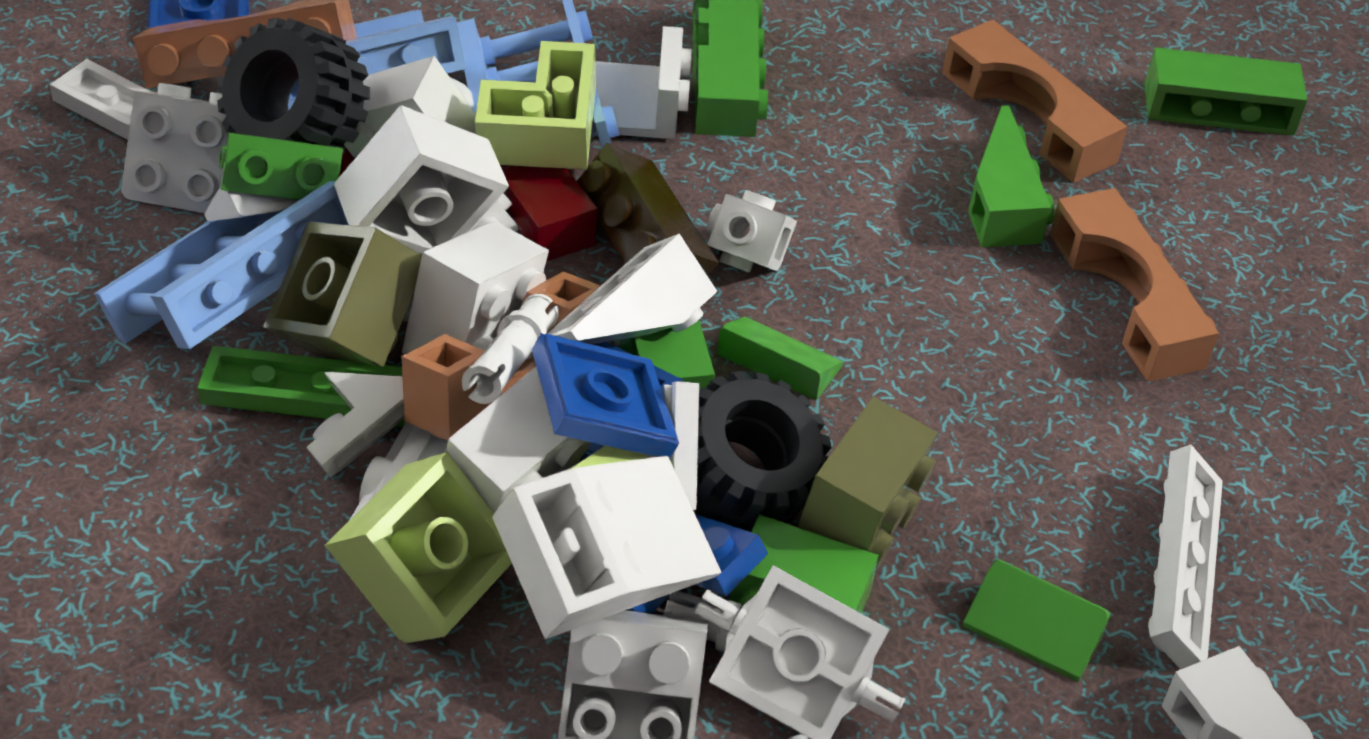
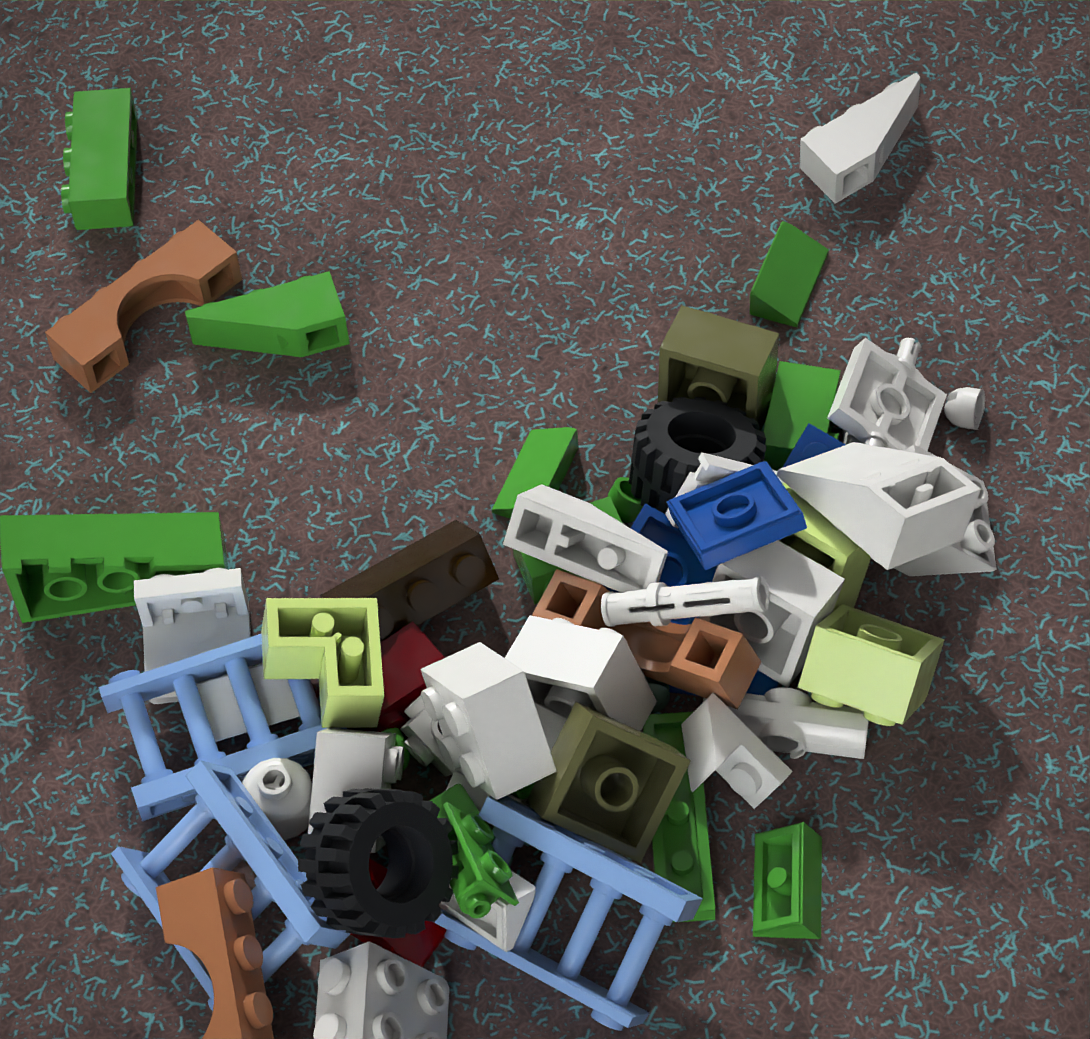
camera: 90 degrees left, 10 degrees up
(213, 470) = (788, 883): none -> bright green slope
(767, 235) = (402, 502): white brick -> none
(1167, 326) = (443, 196): nougat arch -> none
(1186, 559) = (678, 183): white plate -> none

